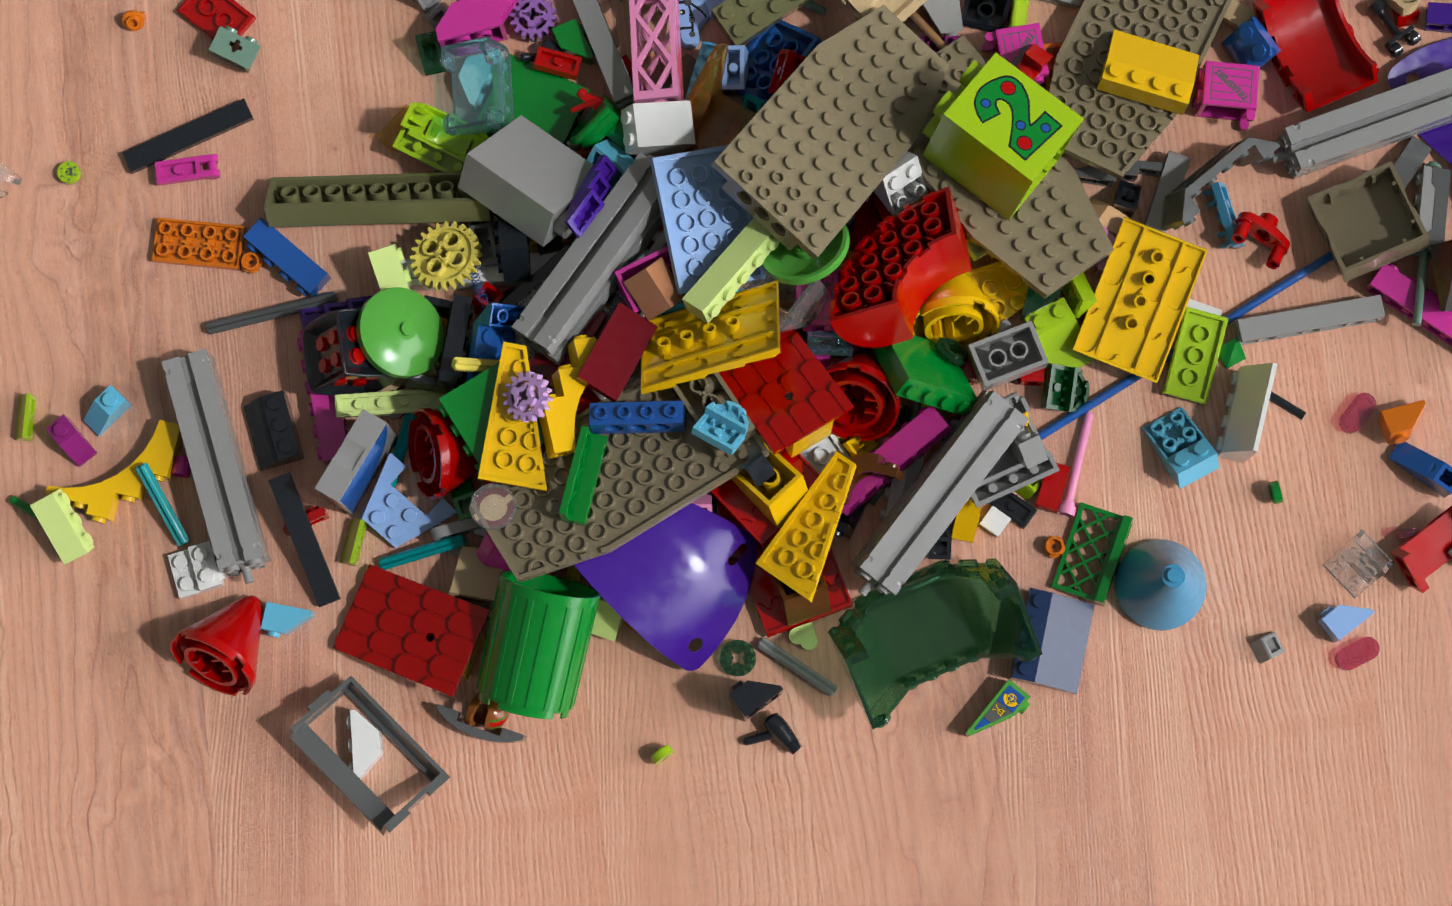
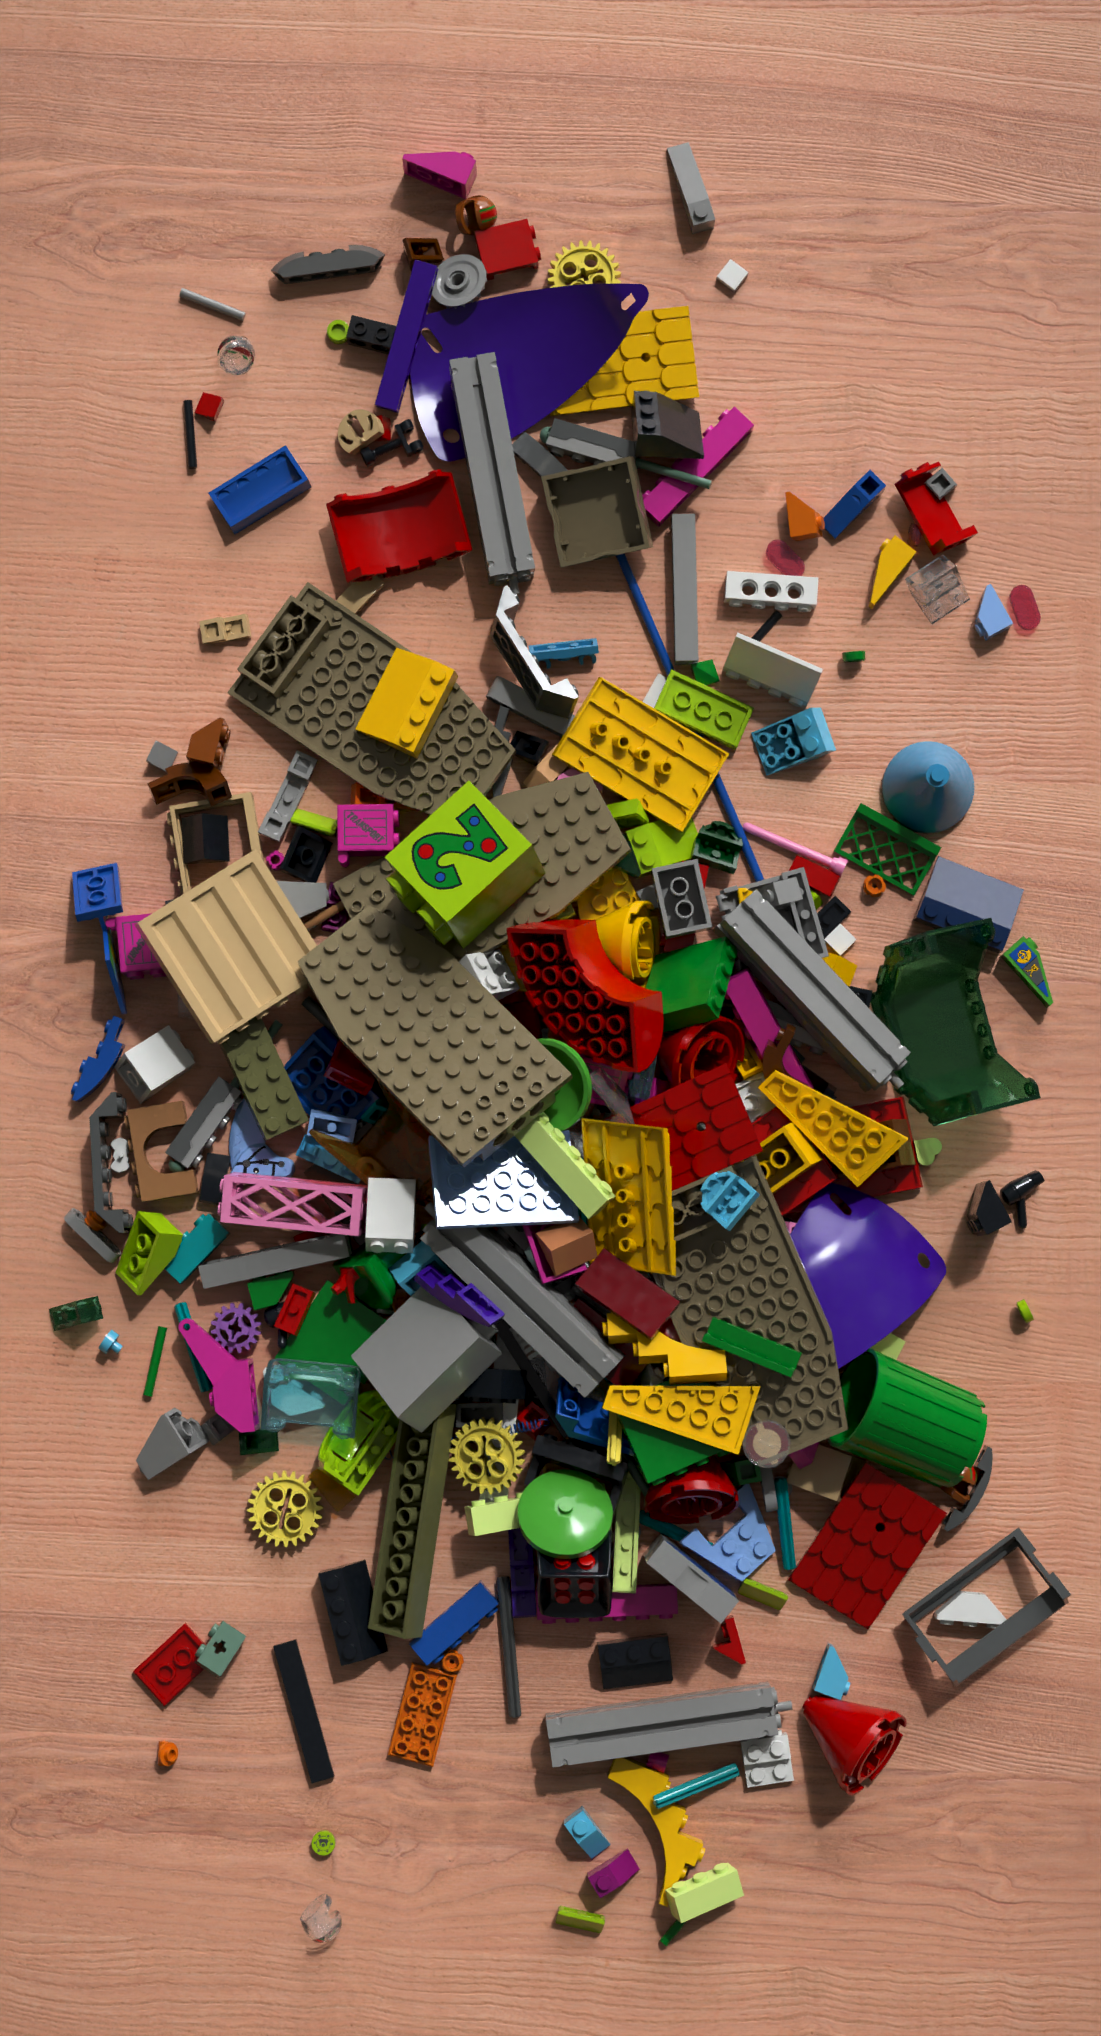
camera: 85 degrees left, 5 degrees up
(186, 169) = (341, 1717): dark pink plate -> none
(290, 156) = (348, 1603): none -> black slope
(304, 539) = (755, 1643): black tile -> none
(369, 107) = (264, 1503): none -> light yellow gear
(536, 393) = (666, 1401): lavender gear -> none
(637, 417) = (699, 1283): blue brick -> none
(737, 647) = (950, 1221): clear green gear -> none
(759, 469) = (772, 1168): black slope -> none
(797, 667) = (956, 1162): light grey axle -> none
(951, 351) = (661, 955): clear green gear -> none
(1034, 61) = (384, 821): red slope -> none
(1227, 92) = (437, 625): dark pink container -> none
(1251, 44) = (391, 592): blue slope -> none
(1263, 230) = (586, 615): red connector -> none
(1267, 647) = (1005, 694): light grey slope -> none
(1327, 369) = (782, 584): none -> white brick
(1373, 514) = (890, 564): none -> yellow slope

